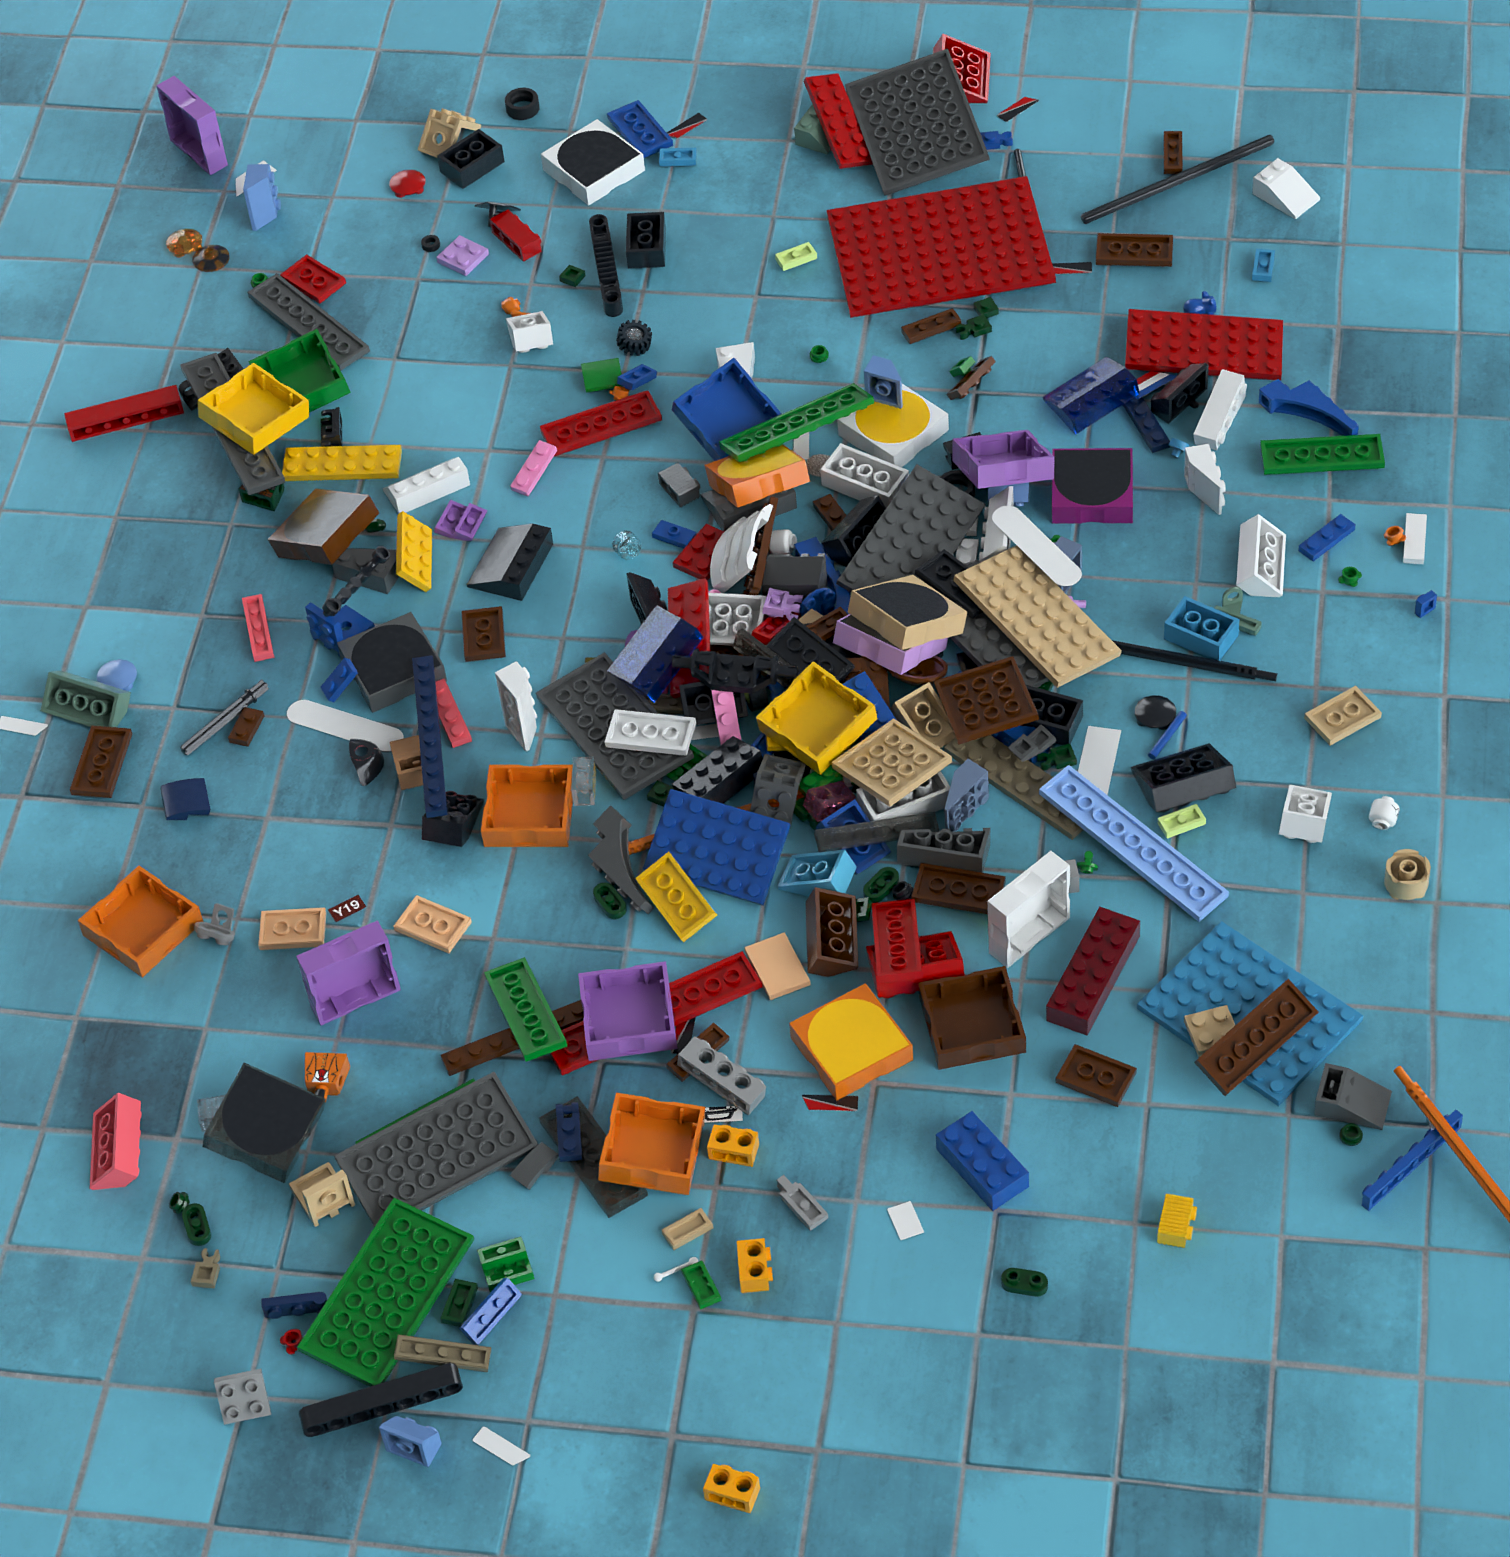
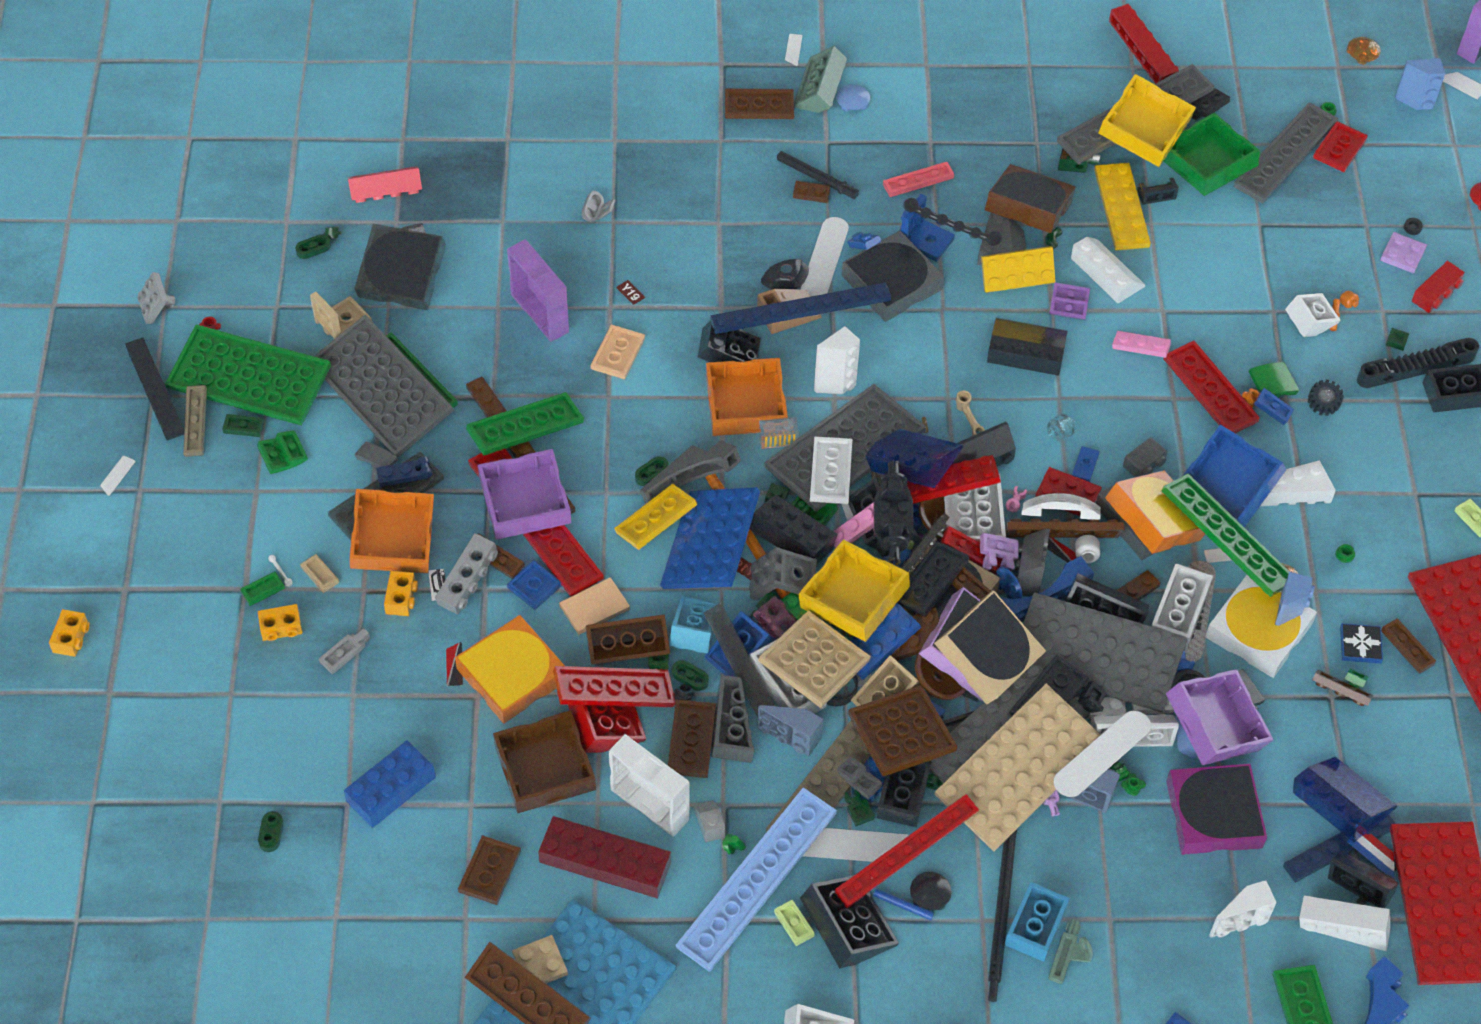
camera: 75 degrees right, 5 degrees up
(140, 921) = (597, 157): orange tile -> none
(185, 798) = (727, 165): dark blue slope -> none
(206, 1272) = (270, 259): dark tan plate -> none
(211, 258) = (1351, 72): dish -> none
(292, 928) = (604, 258): light nougat tile -> none
(293, 1304) = (238, 320): dark blue plate -> none
(325, 1073) = (456, 302): orange torso -> none
(410, 1440) = (114, 409): medium blue slope -> none
(451, 717) = (855, 323): coral plate -> none
(483, 634) = (938, 337): reddish brown plate -> none
(490, 1311) = (234, 446): plate -> none
(493, 207) = (1467, 265): black shield -> none
(576, 618) = (963, 400): none -> tan brick
(683, 1034) = (516, 546): black sticker -> none
(740, 1020) = (534, 585): none -> blue tile
(905, 1220) = (334, 734): white sticker -> none
(921, 359) = (1361, 643): none -> tile
(965, 556) = (1092, 697): none -> black bracket
(976, 326) = (1419, 688): dark green plate -> none
(986, 307) = (1449, 694): dark green plate -> none
(1123, 710) = (906, 850): none -> red plate
(1175, 1220) = (332, 947): yellow brick -> none
(1178, 447) = (1290, 886): dark azure tile -> none
(1261, 558) = (1148, 975): white slope -> none

